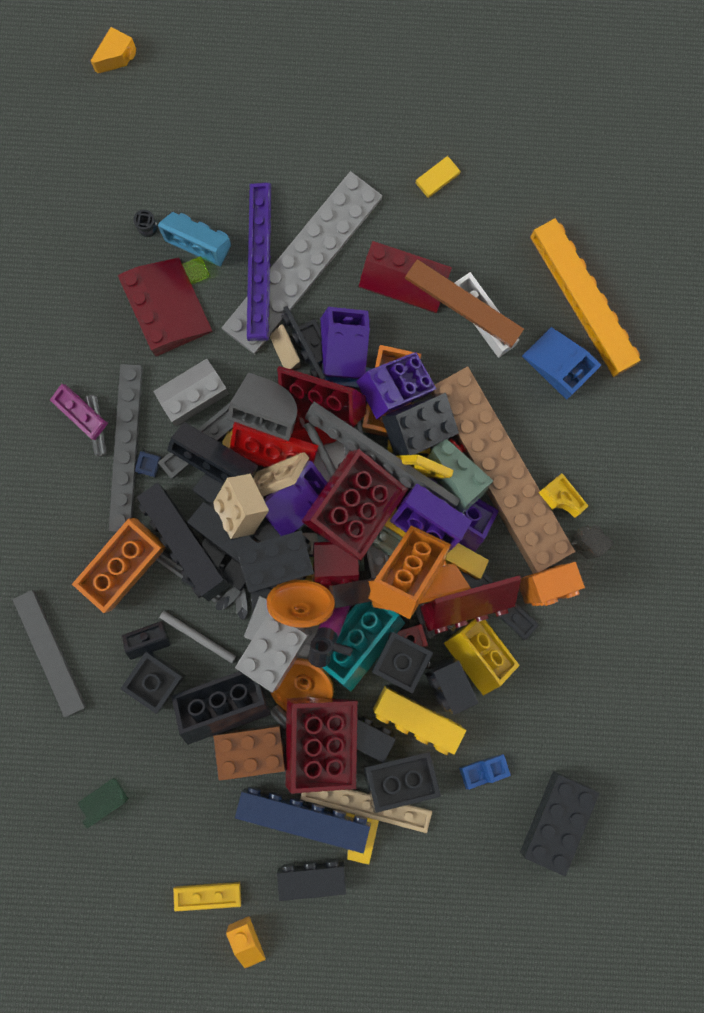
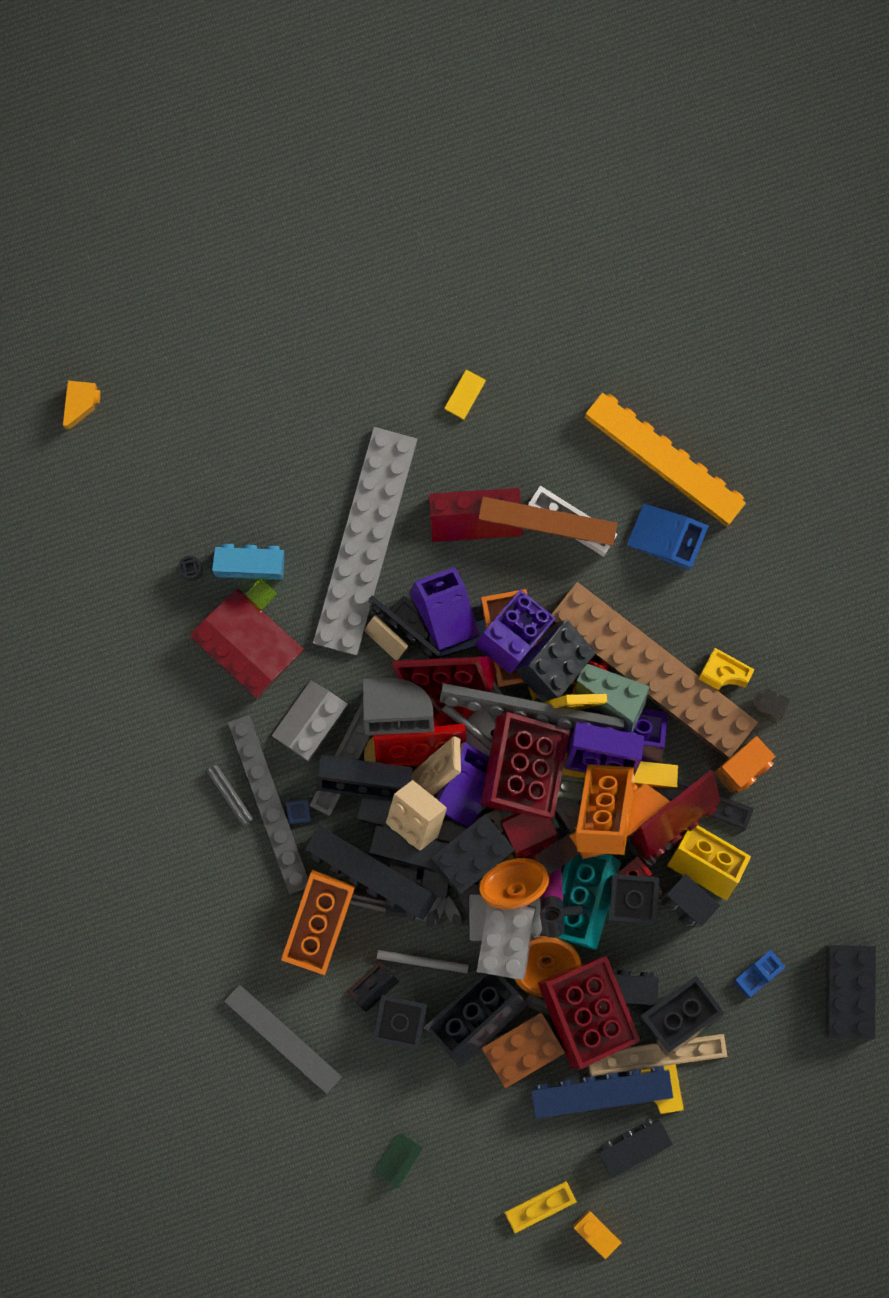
camera: 20 degrees left, 0 degrees up
(78, 411) = (208, 788): magenta tile -> none
(259, 262) = (322, 560): dark purple tile -> none
(420, 720) = (675, 949): yellow brick -> none

